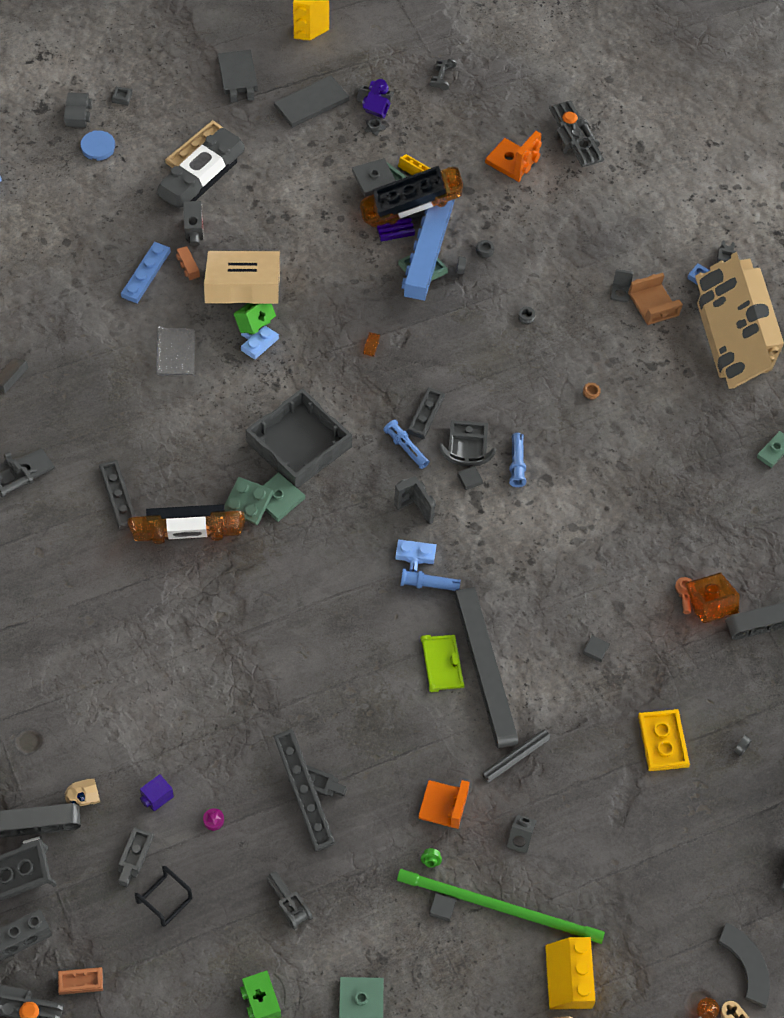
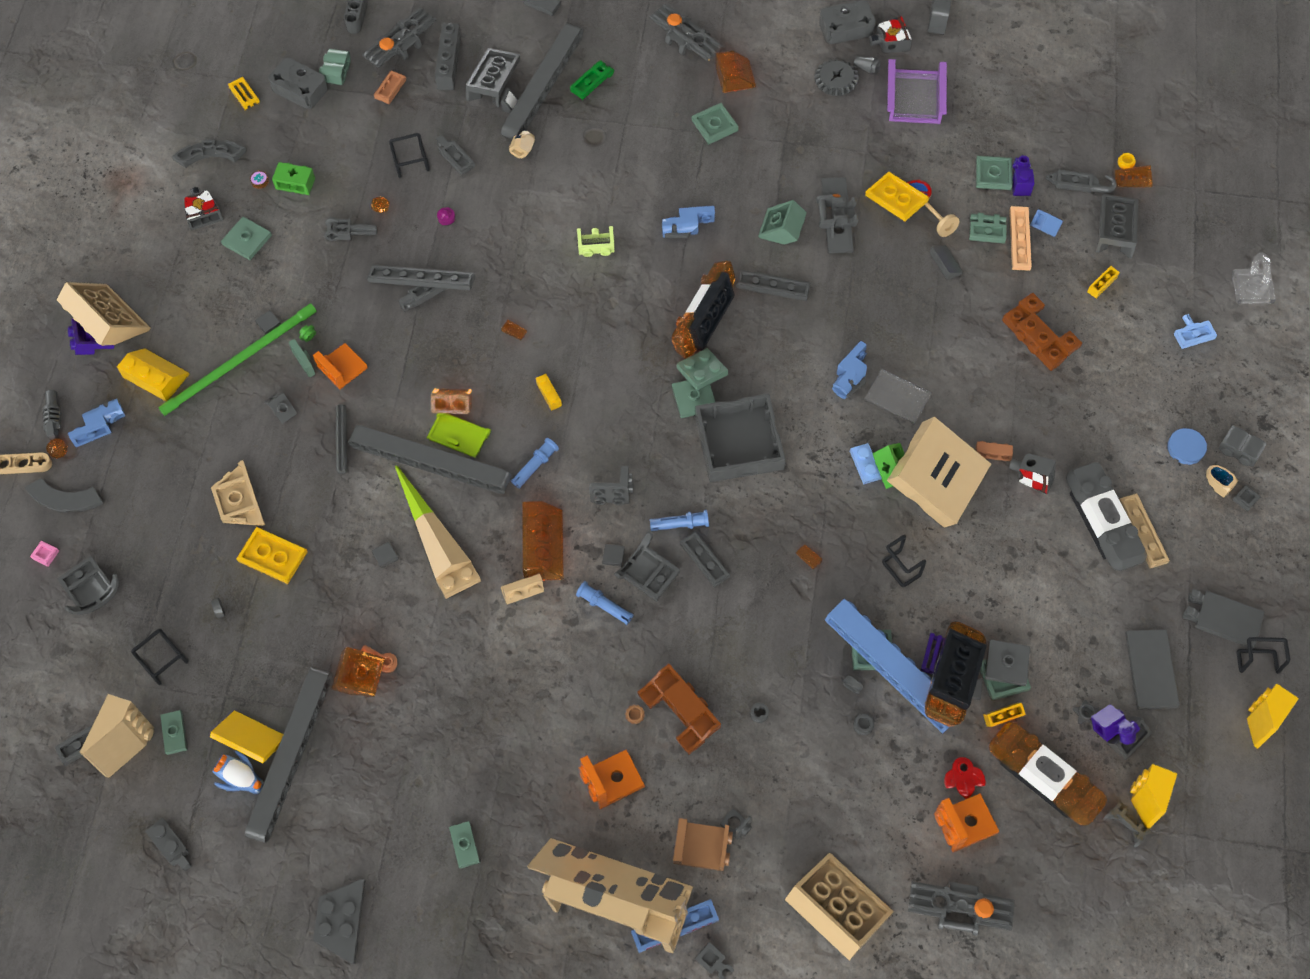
camera: 125 degrees right, 5 degrees up
(45, 516) = (783, 223): none -> sand green slope
(51, 278) = (1037, 335): none -> dark orange bracket
(93, 595) = (687, 221): none -> medium blue plate
(119, 109) = (1221, 479): none -> tan rock
(145, 272) = (1003, 414): medium blue plate -> none
(156, 793) = (490, 188): dark purple brick -> none
(162, 660) = (596, 243): none -> yellowish green window
(175, 390) = (851, 372): none -> medium blue plate
(239, 889) = (380, 204): none -> clear orange tile
(255, 36) = (1250, 651): none -> black piece
(304, 680) = (513, 330): none -> clear orange piece
(342, 270) = (893, 555): none -> black piece
(351, 611) = (548, 392): none -> yellow piece
(415, 553) = (569, 469): light blue plate -> none
(418, 678) = (451, 401): none -> clear orange brick
(419, 54) = (1152, 793): none -> yellow slope
(441, 125) = (1047, 774): none -> clear orange piece
(460, 843) = (302, 357): none -> sand green plate
(479, 173) = (964, 781): none -> red plate
(501, 531) = (542, 540): none -> clear orange slope
(550, 521) = (522, 589): none -> tan bracket
(560, 357) = (687, 706): none -> dark orange bracket
(566, 595) = (448, 561): none -> tan plate
(630, 201) = (839, 905): none -> tan slope
(636, 803) = (237, 498): none -> tan wing
(657, 987) = (97, 422): none -> medium blue plate
(661, 382) = (602, 787): none -> orange bracket

